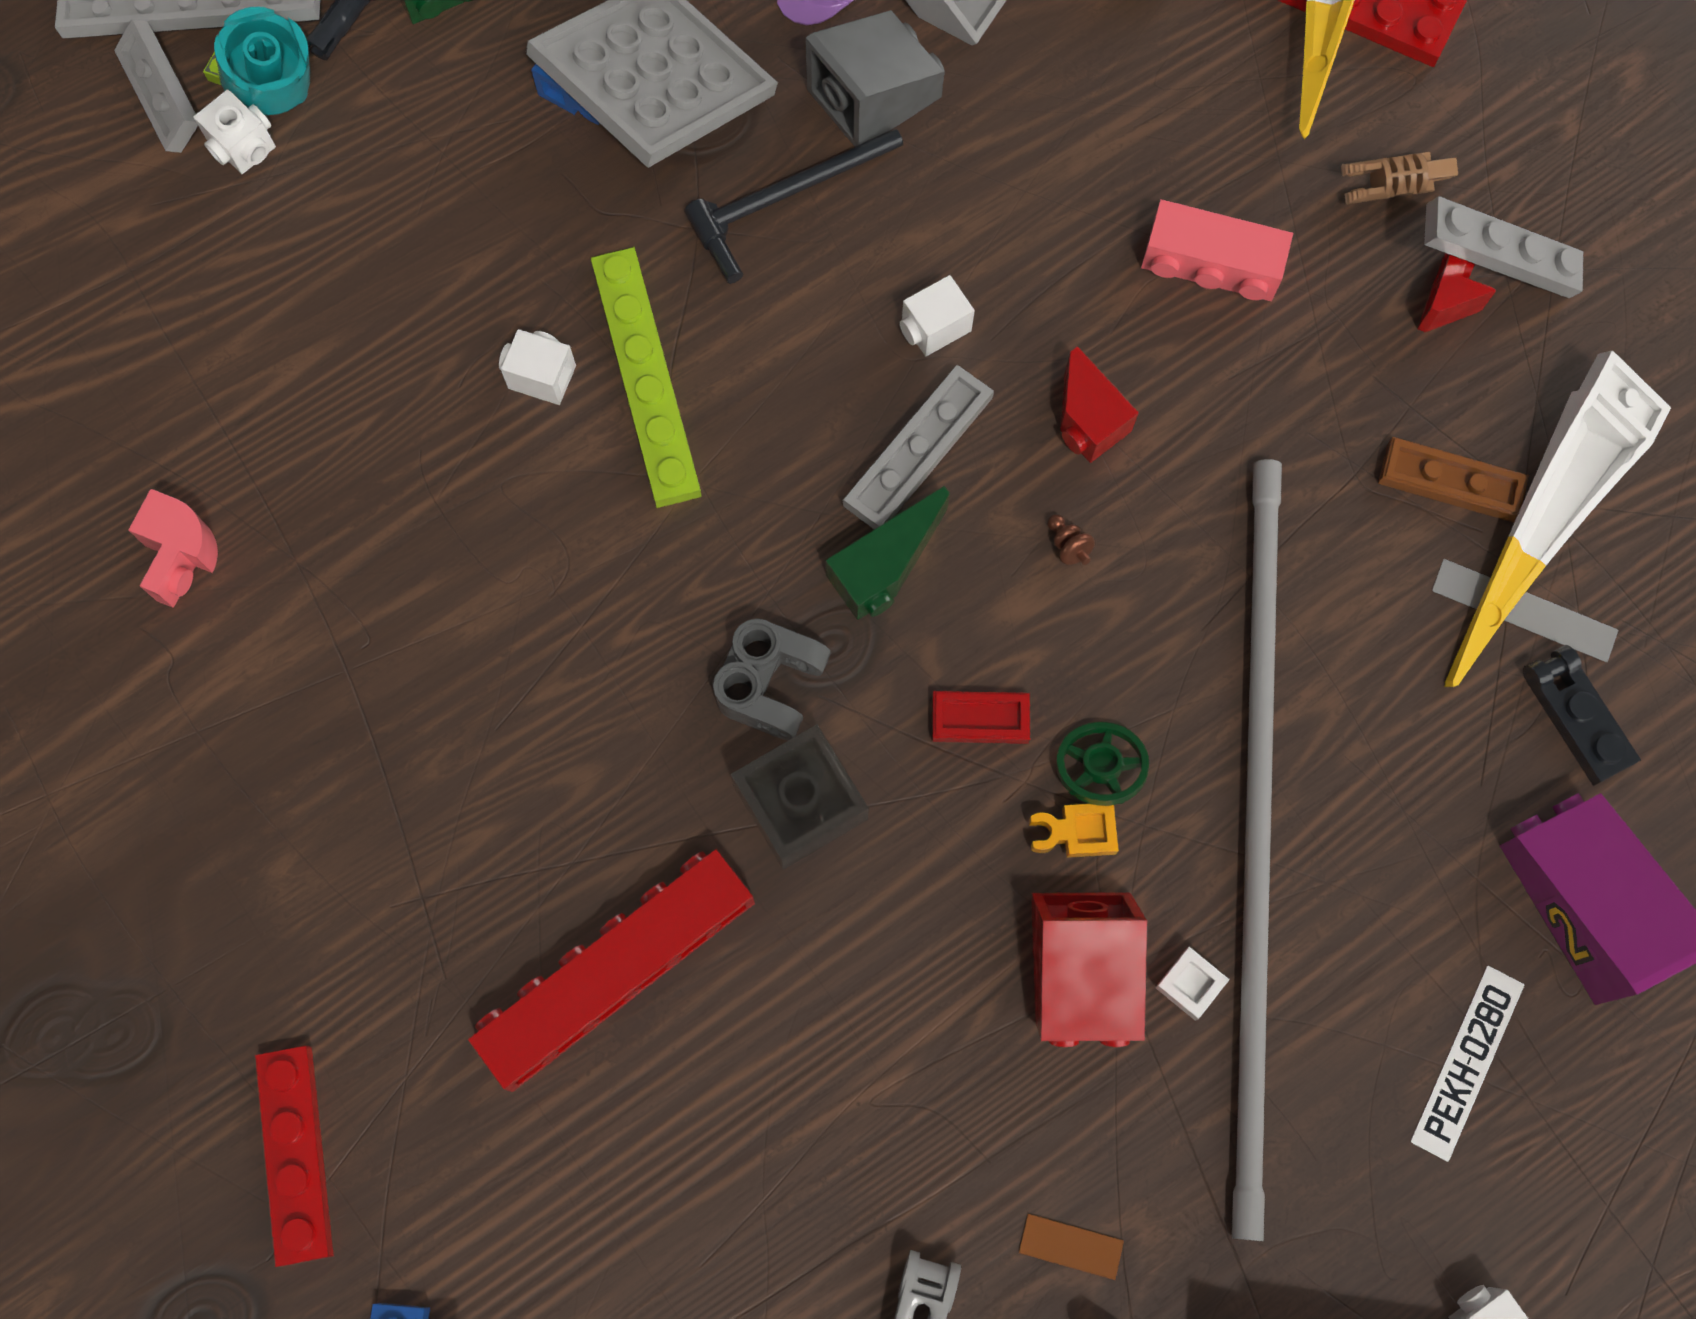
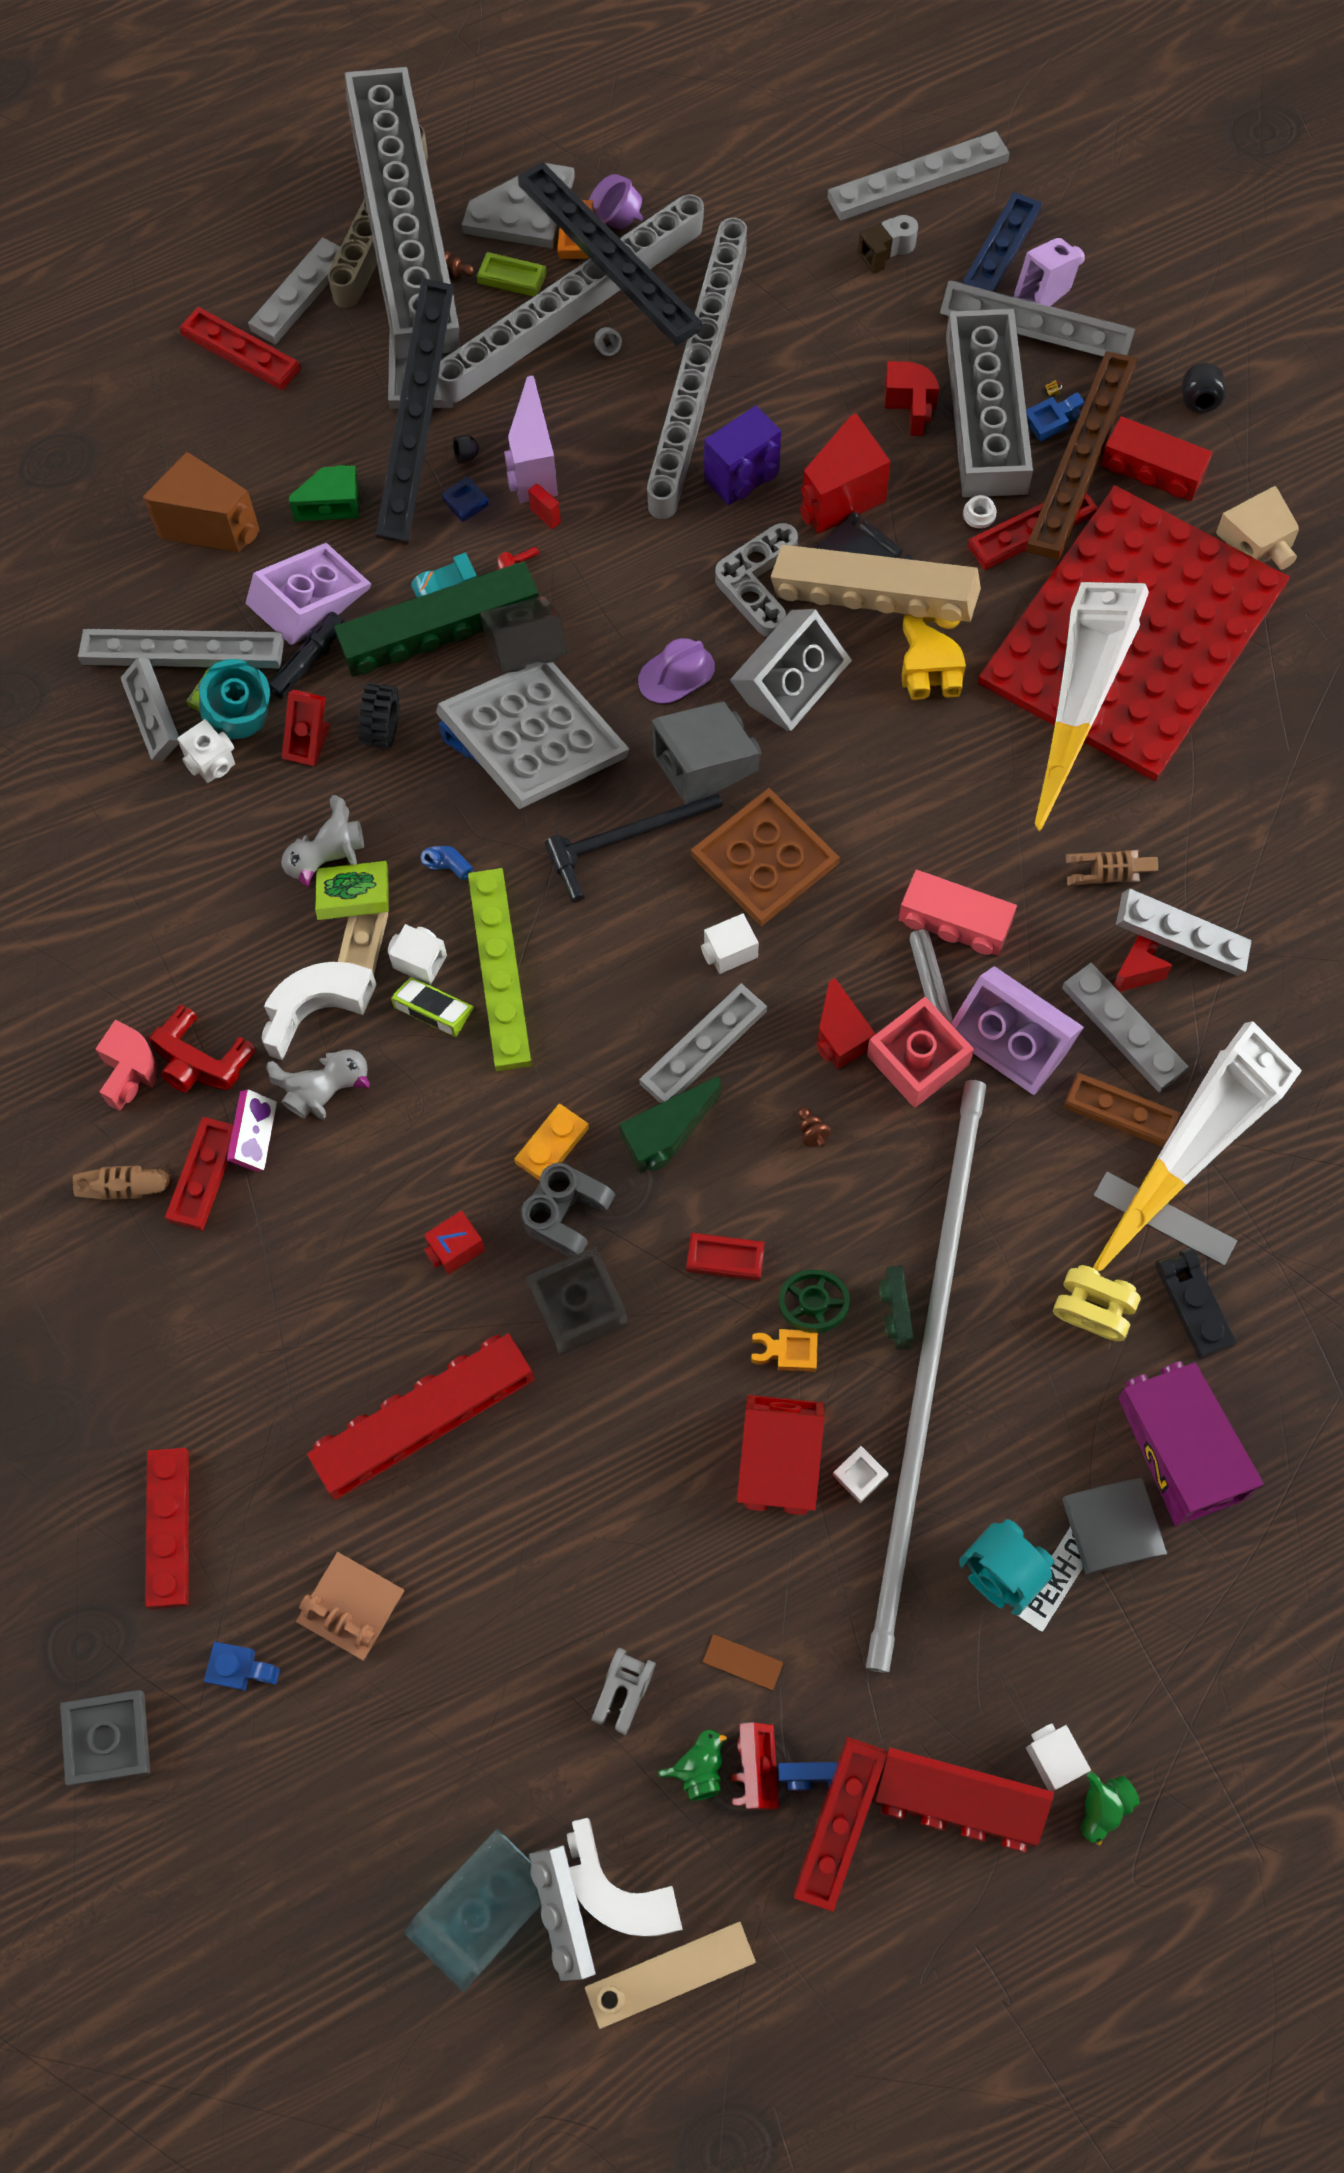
camera: 10 degrees right, 5 degrees down
(182, 701) = (120, 1182): none -> medium nougat hinge
(256, 538) = (191, 1065): none -> red connector
(289, 679) = (201, 1175): none -> red plate
(348, 616) = (251, 1130): none -> tile
(358, 91) = (304, 727): none -> red slope
(404, 426) = (311, 989): none -> white arch
(412, 233) = (333, 842): none -> light grey animal
(423, 553) = (311, 1089): none -> light grey animal
(443, 293) = (352, 890): none -> lime tile
(452, 66) = (378, 715): none -> black tyre
(464, 356) = (363, 940): none -> tan plate
(548, 1233) = (349, 1606): none -> nougat hinge
(561, 241) = (446, 858): none -> blue arm
(564, 432) = (432, 1006): none -> slope
(628, 737) = (453, 1243): none -> red brick
(739, 591) = (552, 1141): none -> light orange plate
(965, 202) = (765, 856): none -> dark orange plate
(1193, 338) = (929, 972): none -> light grey axle
(1196, 430) = (920, 1052): none -> coral brick
(1215, 778) = (898, 1324): none -> clear green plate
(1307, 391) = (1015, 1029): none -> lavender slope
(1402, 1087) = (1007, 1566): none -> teal brick
(1442, 375) = (1125, 1027): none -> light grey plate
(1482, 716) = (1115, 1295): none -> light yellow brick
(1522, 1015) = (1114, 1525): none -> dark grey slope

